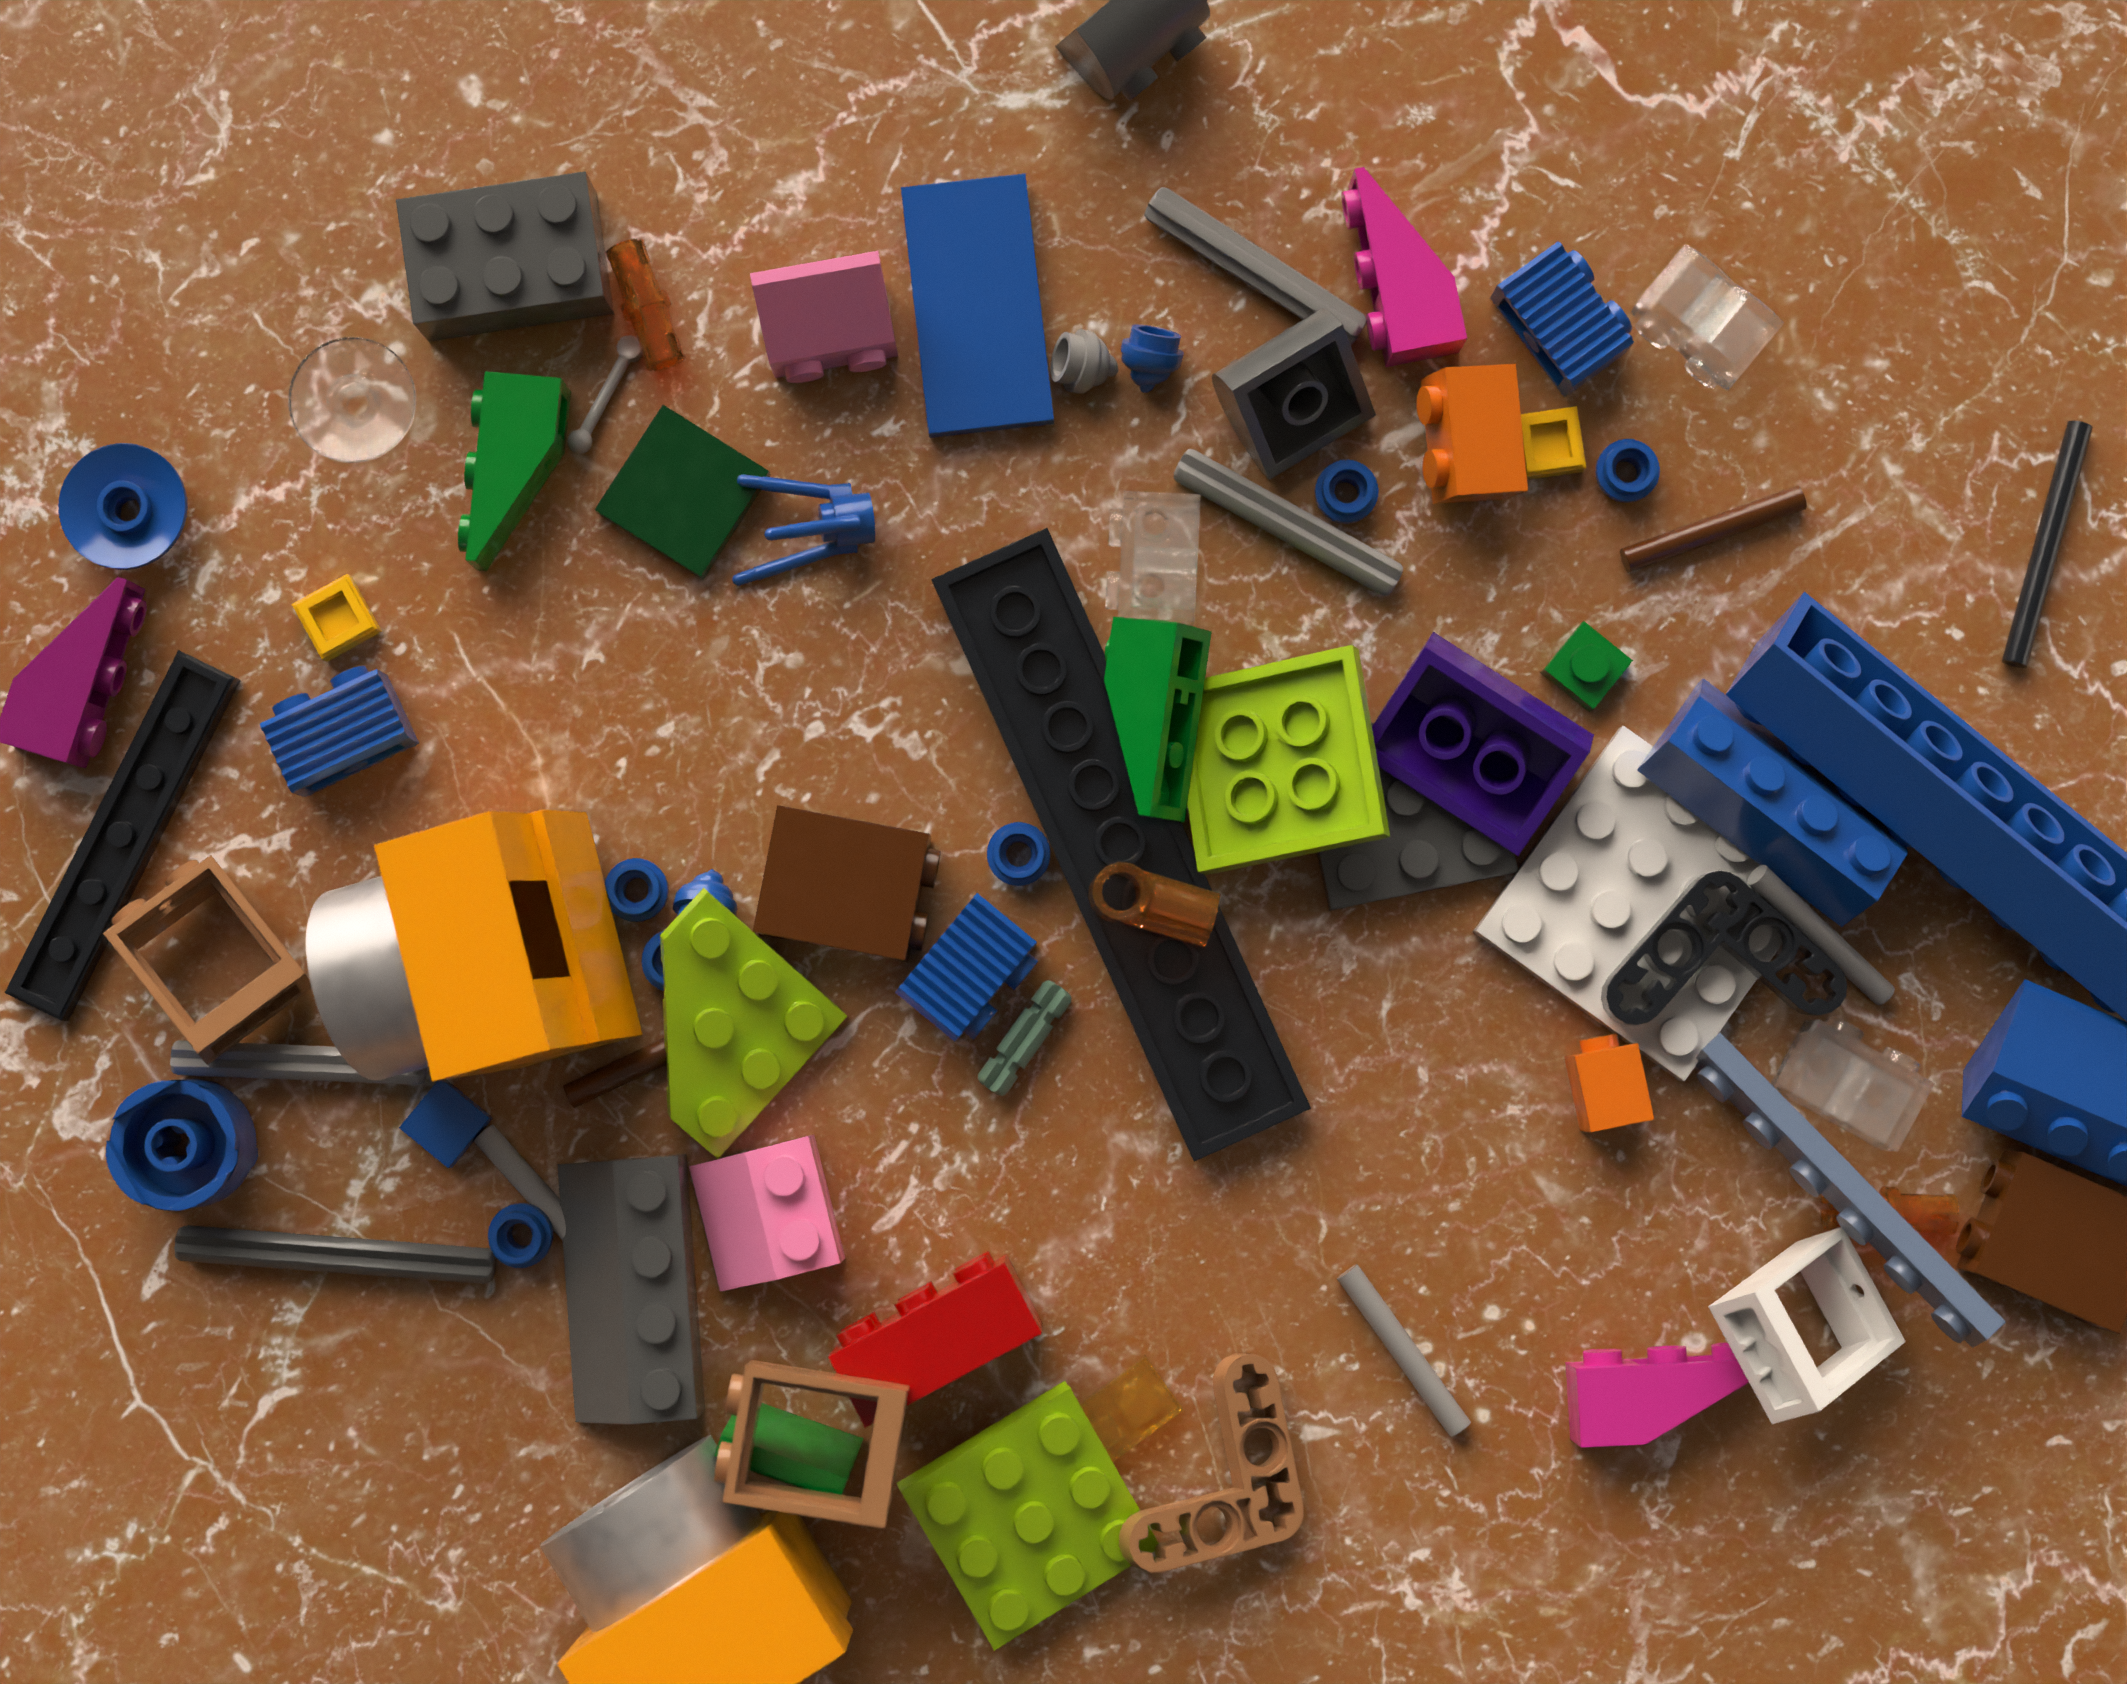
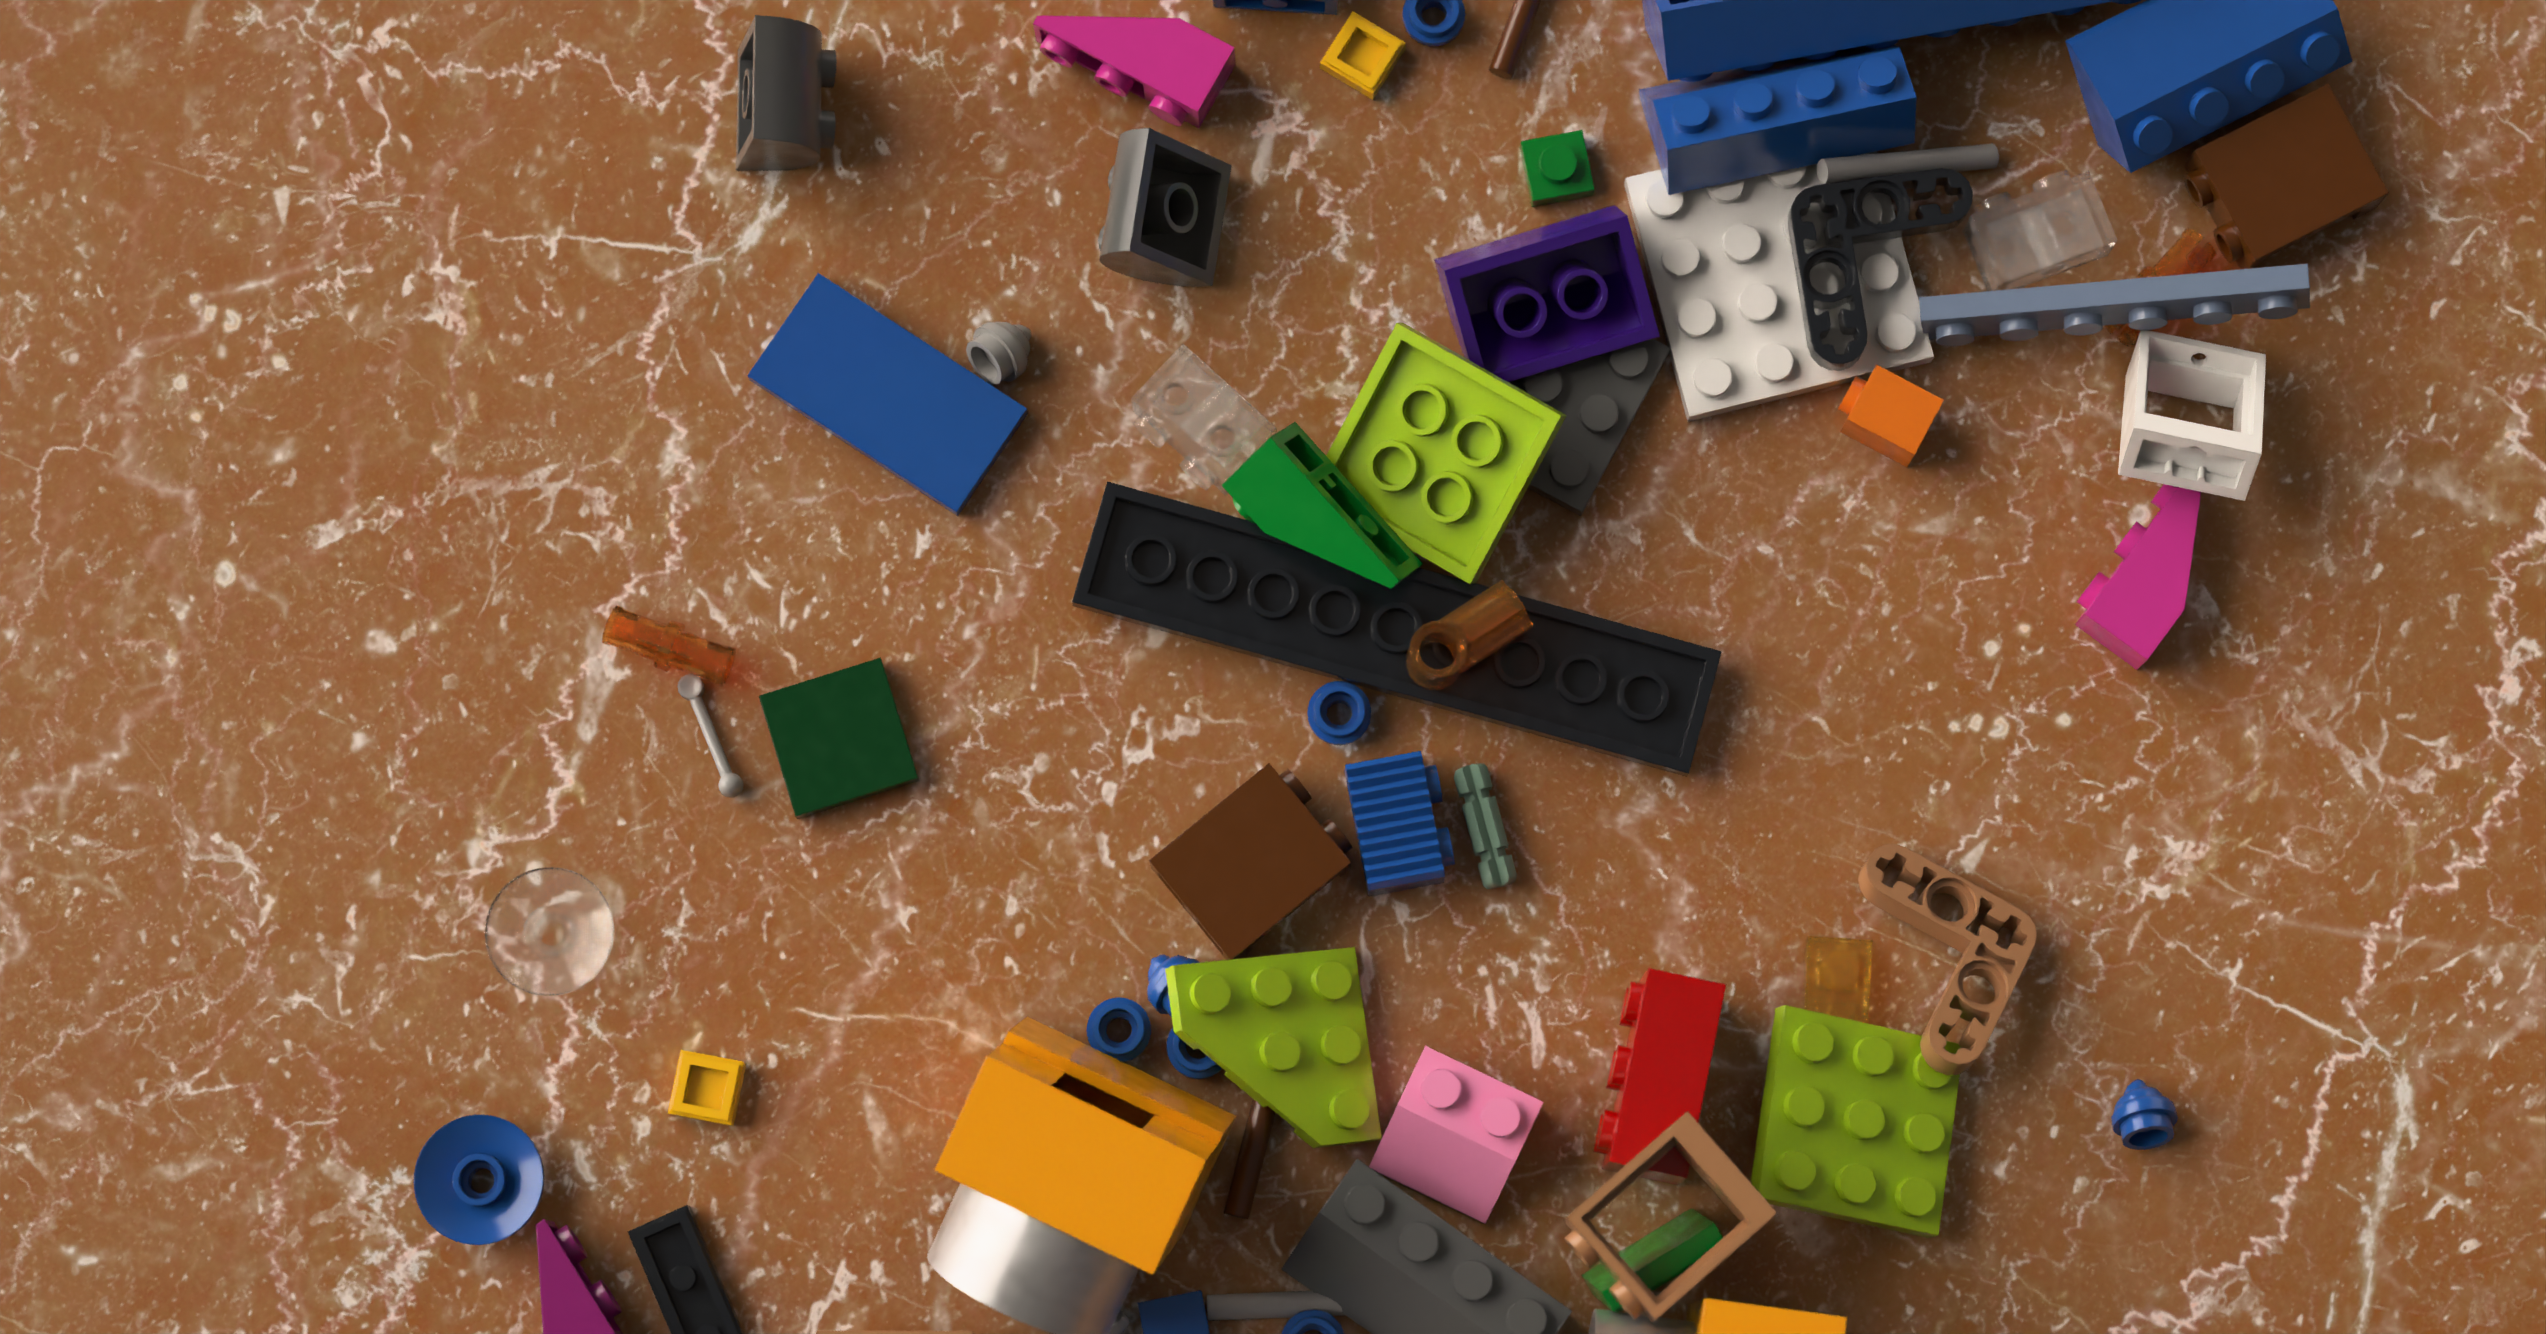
camera: 45 degrees left, 5 degrees down
(338, 731) = (799, 1156): blue brick -> none
(504, 256) = (541, 719): dark grey brick -> none
(518, 447) = (697, 832): green slope -> none
(825, 316) = (803, 513): bright pink slope -> none
(844, 521) = (969, 635): blue plant -> none
(1151, 355) = (1040, 294): blue plate -> none
(1248, 261) = (1029, 162): light grey axle -> none
(1288, 522) = (1256, 298): light grey axle -> none
(1346, 472) = (1270, 217): blue plate -> none
(1404, 1350) = (1964, 737): light grey bar -> none
(1472, 434) = (1309, 104): orange brick -> none

